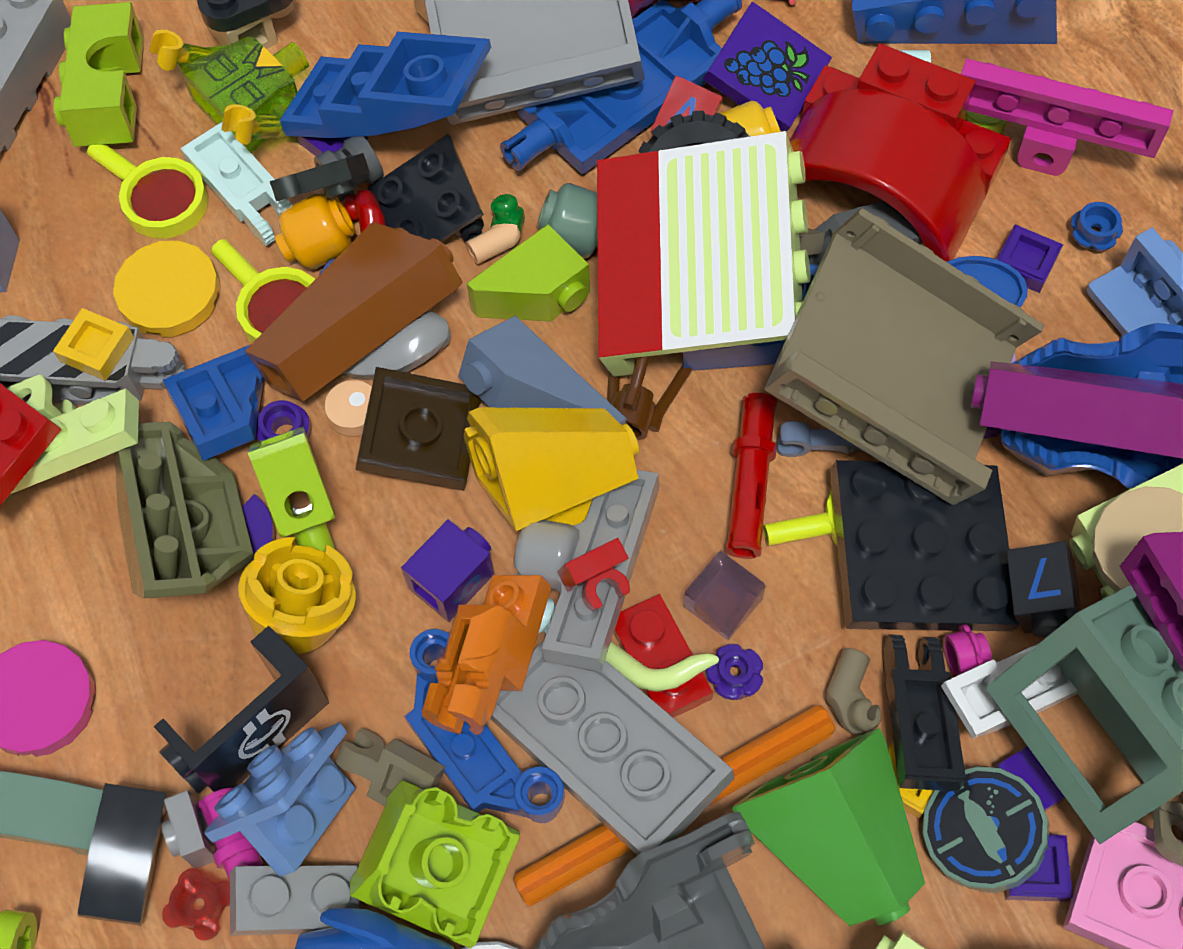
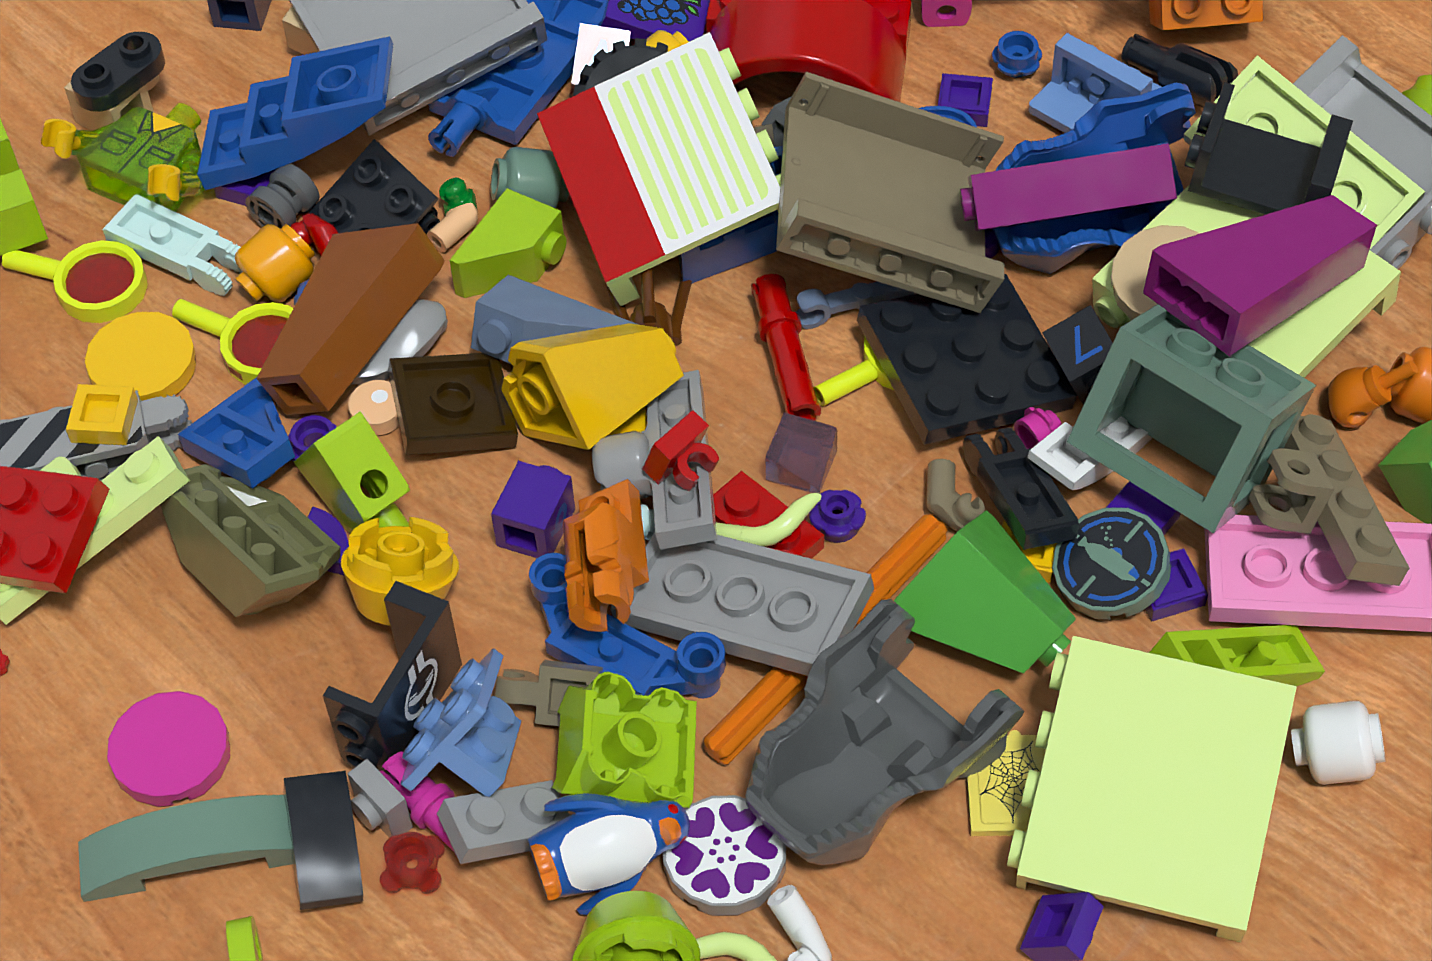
camera: 20 degrees left, 10 degrees down
(332, 177) = (280, 202): pearl dark grey plate -> none

